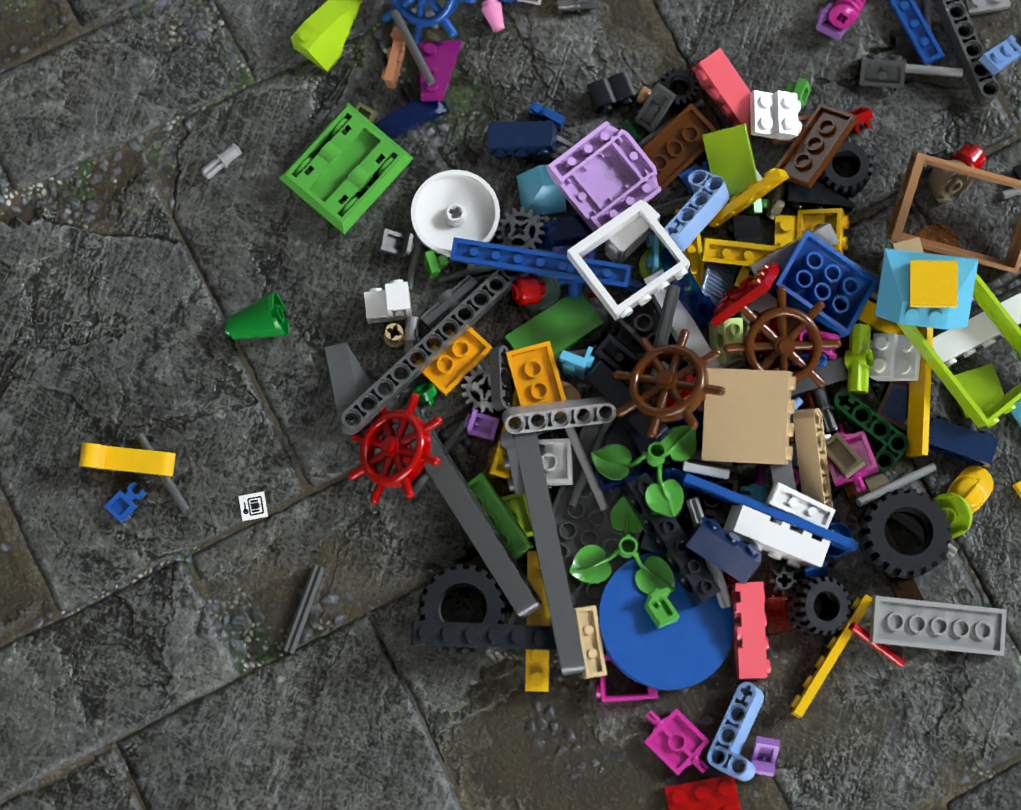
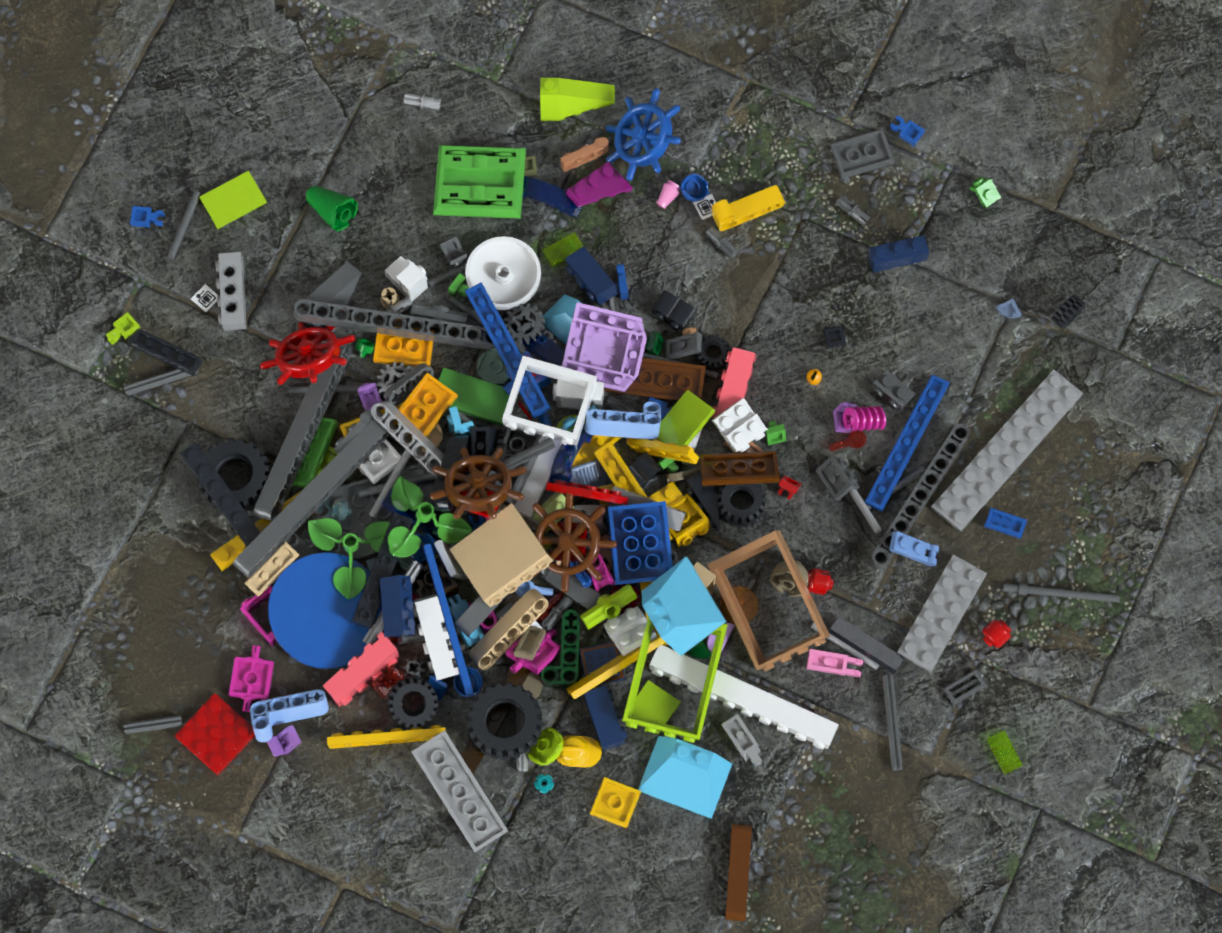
camera: 55 degrees right, 5 degrees down
(127, 459) = (173, 195): yellow beam -> none
(174, 407) = (233, 199): none -> lime tile
(221, 604) = (124, 326): none -> lime plate
(242, 452) = (237, 319): none -> light grey brick
(280, 583) = (166, 352): none -> black tile
(413, 47) = (595, 161): dark grey bar -> none
(473, 144) = (561, 249): none -> clear neon green plate
(528, 290) = (486, 358): red head -> none
(576, 534) = (340, 510): none -> clear light blue tile
(660, 608) = (329, 597): bright green bracket -> none
(765, 23) = (817, 379): none -> light orange hinge
(800, 505) = (468, 637): white tile -> none
(857, 31) = (855, 439): none -> clear red plate
(882, 648) = (416, 767): red bar -> none
(896, 484) = (544, 698): light grey bar -> none
(933, 284) = (683, 604): yellow tile -> none
(976, 547) = (544, 778): none -> teal plate

